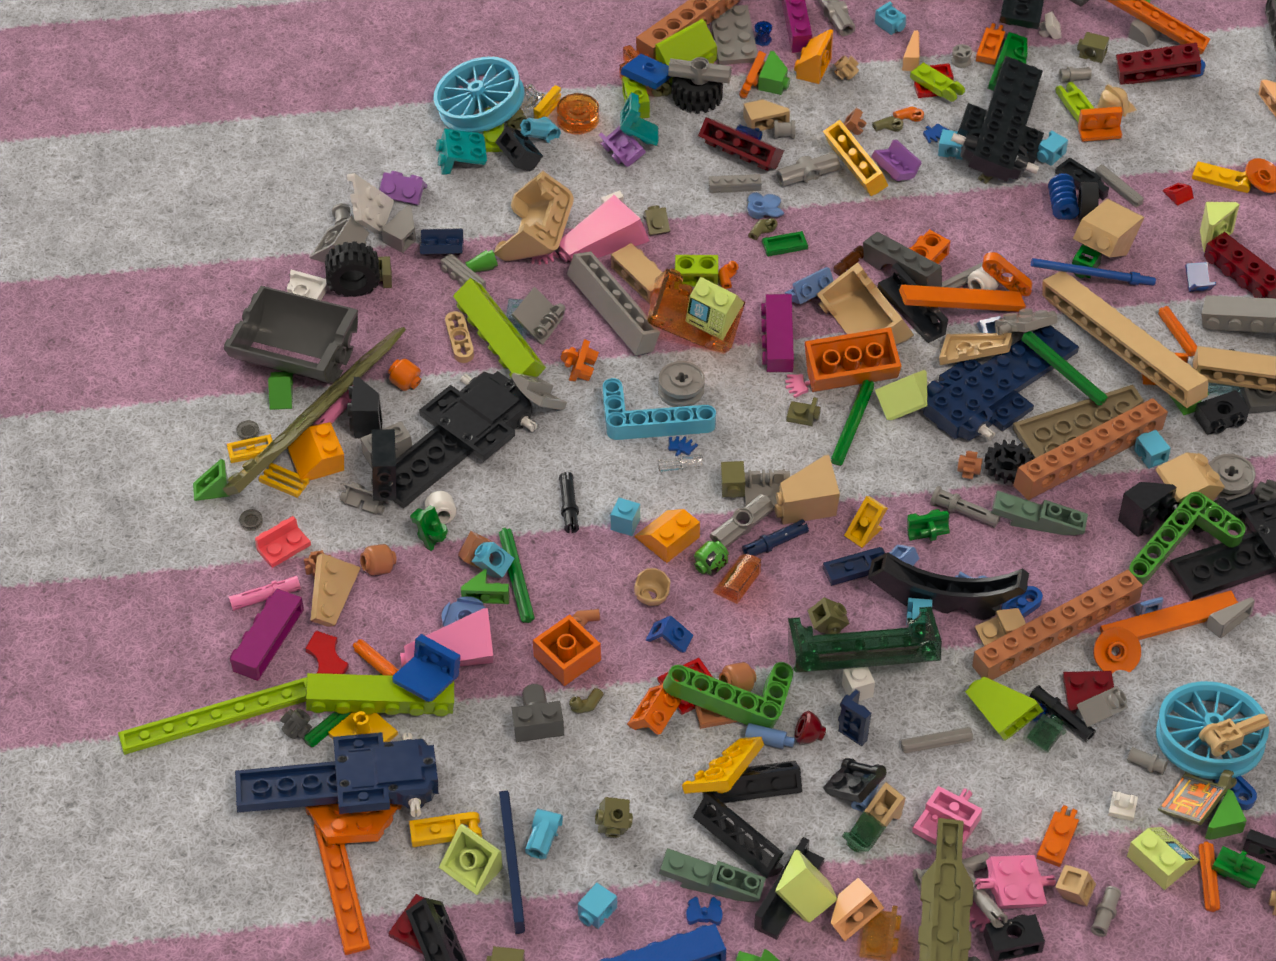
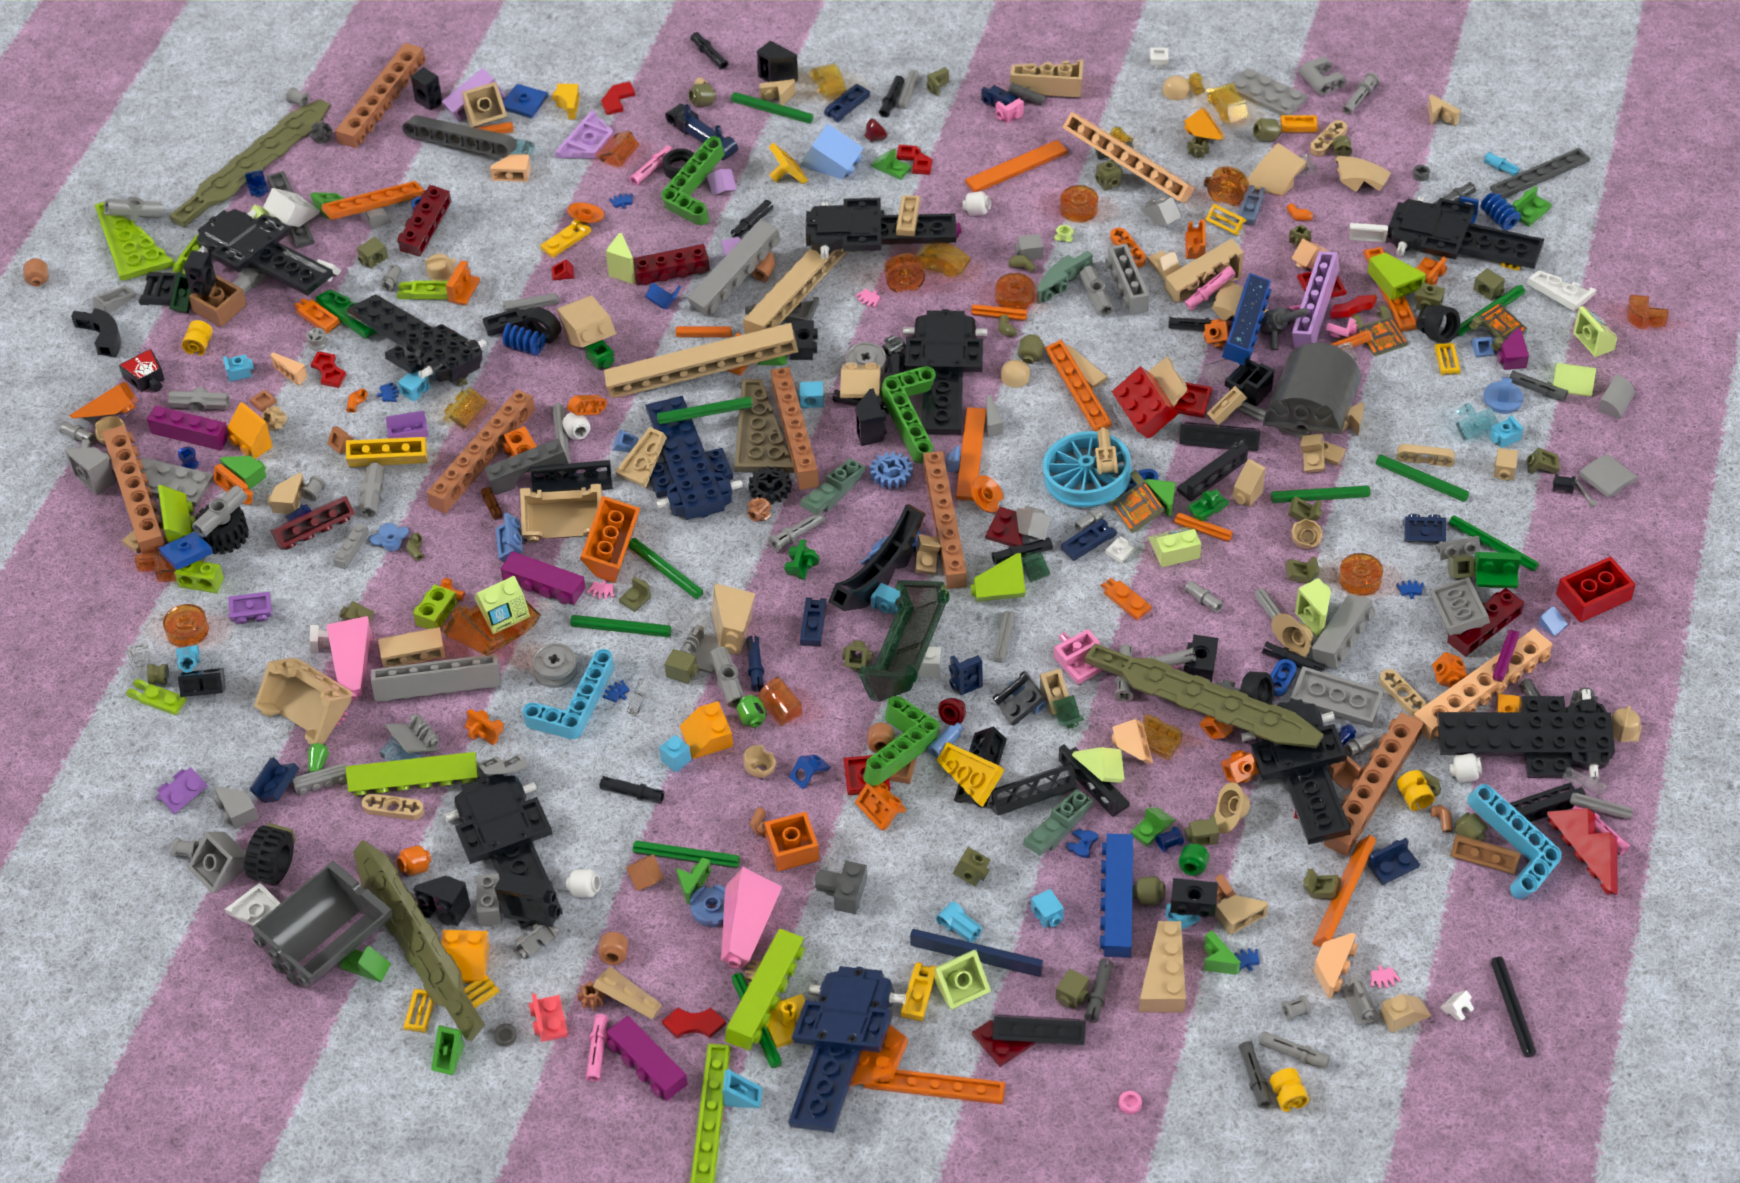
camera: 65 degrees left, 0 degrees up
(247, 430) = (397, 1006): clear smoke tile -> none
(260, 721) = (740, 1091): none -> medium azure slope
(296, 723) = (756, 1064): dark grey gear -> none
(369, 204) = (195, 809): white wing -> none
(374, 658) = (723, 983): orange axle -> none
(429, 526) = (604, 896): green hips -> none
(429, 670) = (770, 937): blue bracket -> none
(460, 147) = (166, 729): teal bracket -> none
(479, 94) = (113, 687): medium azure wheel -> none
(501, 559) = (667, 860): medium azure brick -> none
(548, 103) = (158, 644): yellow tile -> none
(586, 705) = (847, 849): olive arm -> none
(633, 125) = (234, 582): teal bracket -> none
(761, 416) = (620, 625): none -> green axle
(784, 243) = (442, 539): green tile -> none
(866, 54) = (263, 400): none -> nougat tile
(866, 522) = (777, 596): yellow slope -> none
(890, 123) = (357, 416): olive arm -> none
(903, 223) = (480, 451): none -> nougat brick
(903, 395) = (665, 520): yellowish green slope -> none
(905, 553) = (818, 589): medium blue slope -> none
(937, 82) = (338, 365): lime hinge -> none
(950, 192) = (465, 408): none -> clear yellow bracket
(961, 298) = (591, 443): orange tile -> none
(1015, 881) = (1158, 635): bright pink plate -> none
(1025, 321) = (642, 414): light grey plate -> none
(1052, 148) = (464, 324): medium azure brick -> none
(1075, 885) = (1179, 602): tan brick -> none
(1096, 556) = (891, 470): none -> medium blue gear
(1118, 769) = (1088, 539): none -> dark blue plate
(1132, 278) = (634, 334): blue bar -> none

